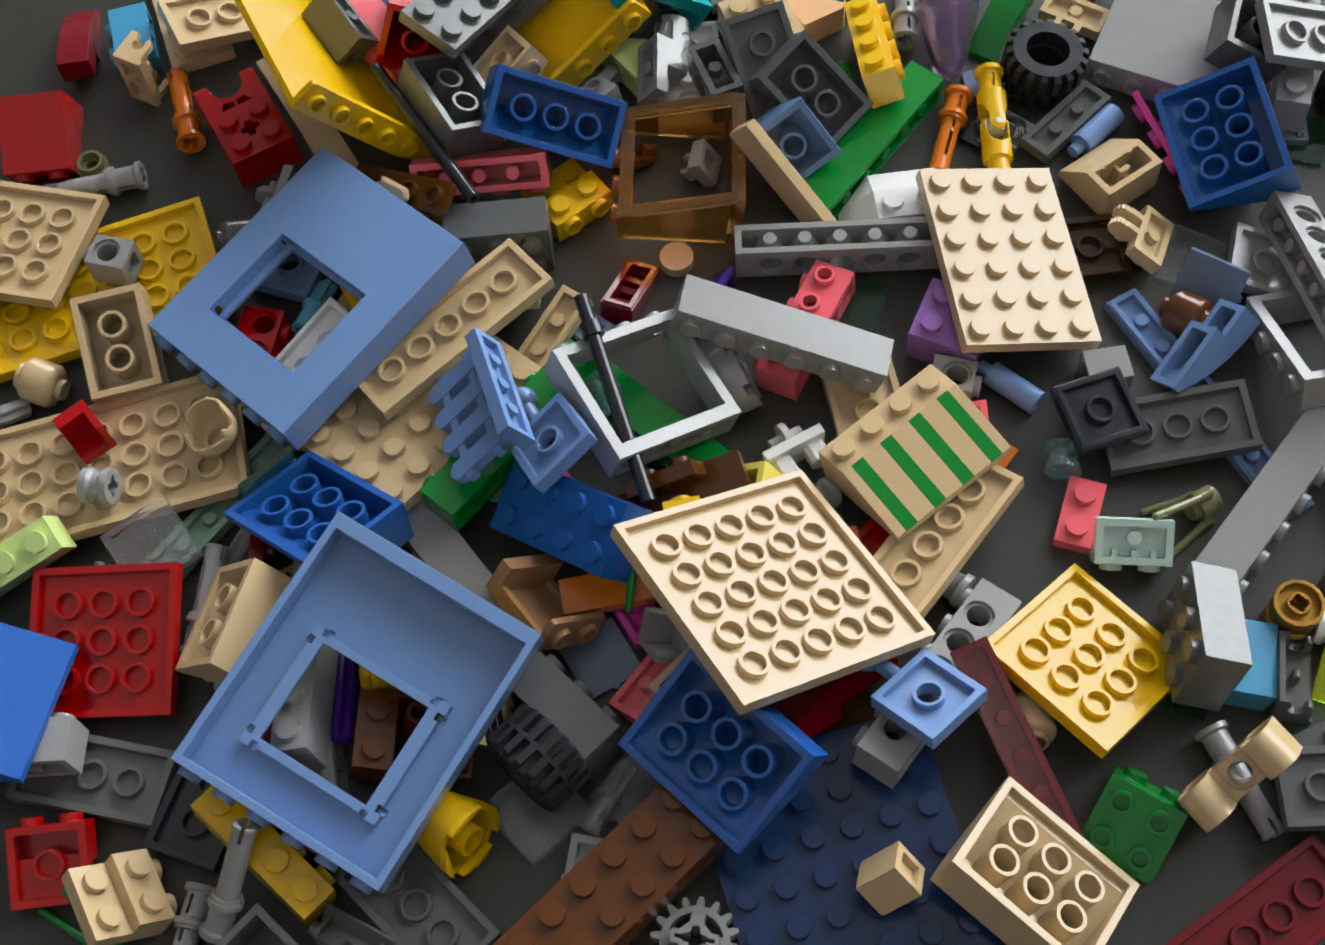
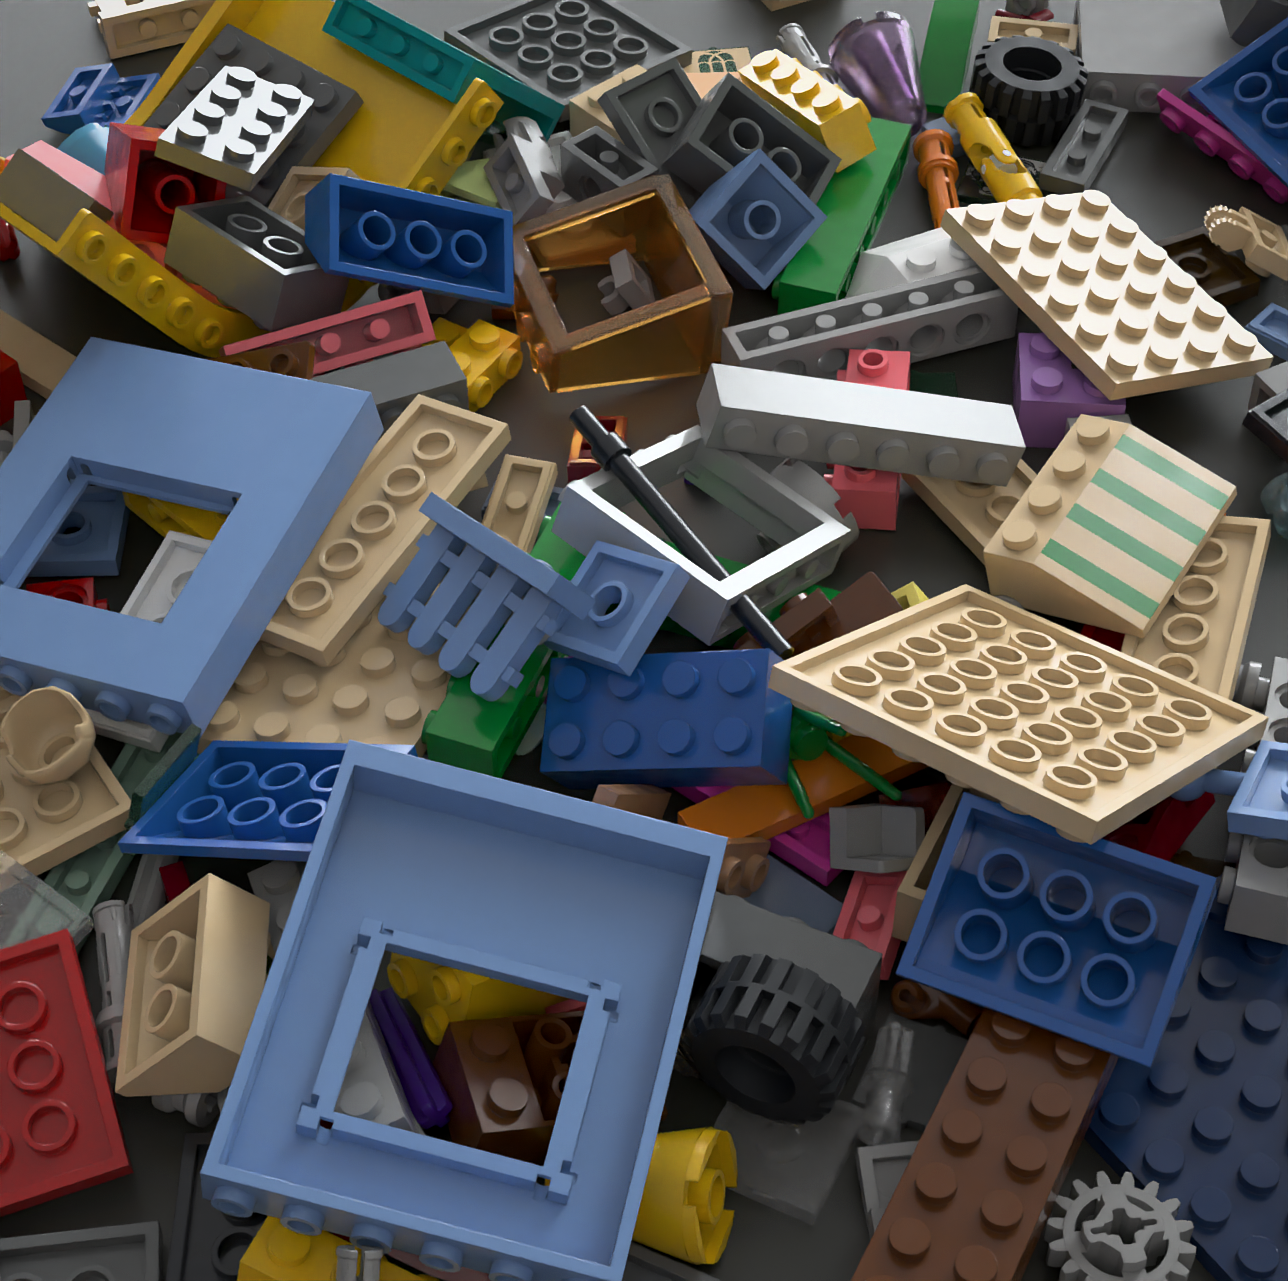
camera: 25 degrees left, 15 degrees down
(311, 305) = (129, 568): medium azure axle -> none
(424, 133) = (247, 305): black piece -> none
(676, 259) = (645, 403): tan tile -> none
(780, 173) = (755, 249): tan tile -> none
(793, 446) = (935, 570): white hips -> none
(1011, 386) = (1197, 444): medium blue cylinder -> none
(1095, 130) = (1127, 150): medium blue cylinder -> none
(1113, 174) = (1179, 185): tan slope -> none

